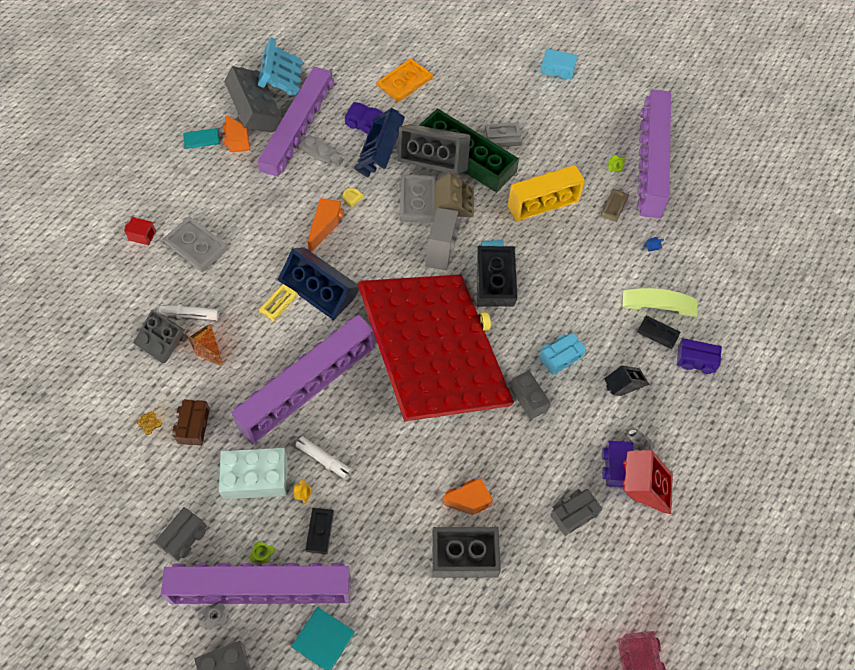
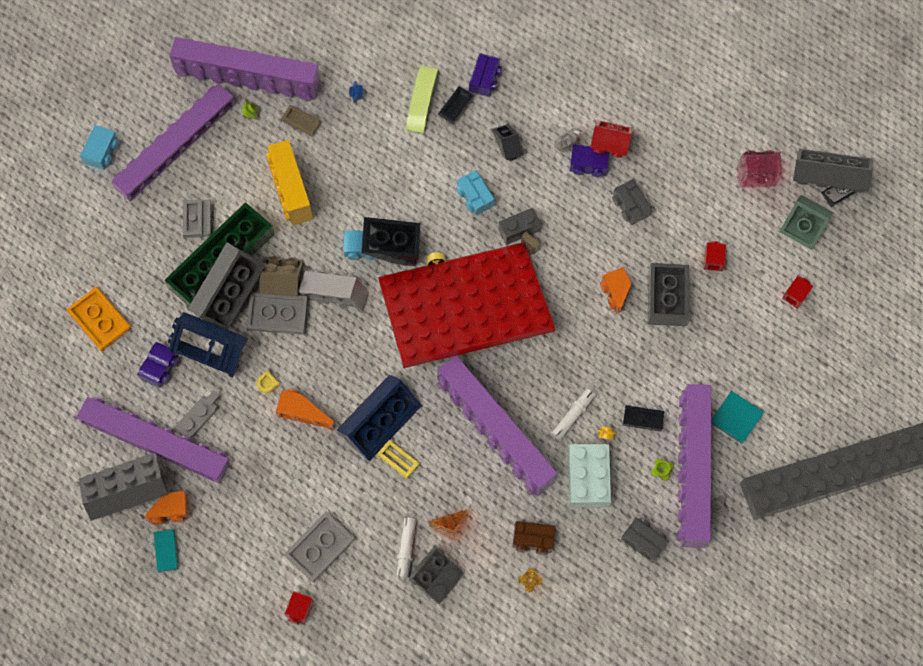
camera: 85 degrees left, 10 degrees up
(280, 69) = (73, 465): medium azure fence -> none
(512, 406) = (530, 243): none -> dark tan tile
(521, 608) = (714, 256): none -> red brick
(574, 113) = (173, 142): none -> medium lavender brick

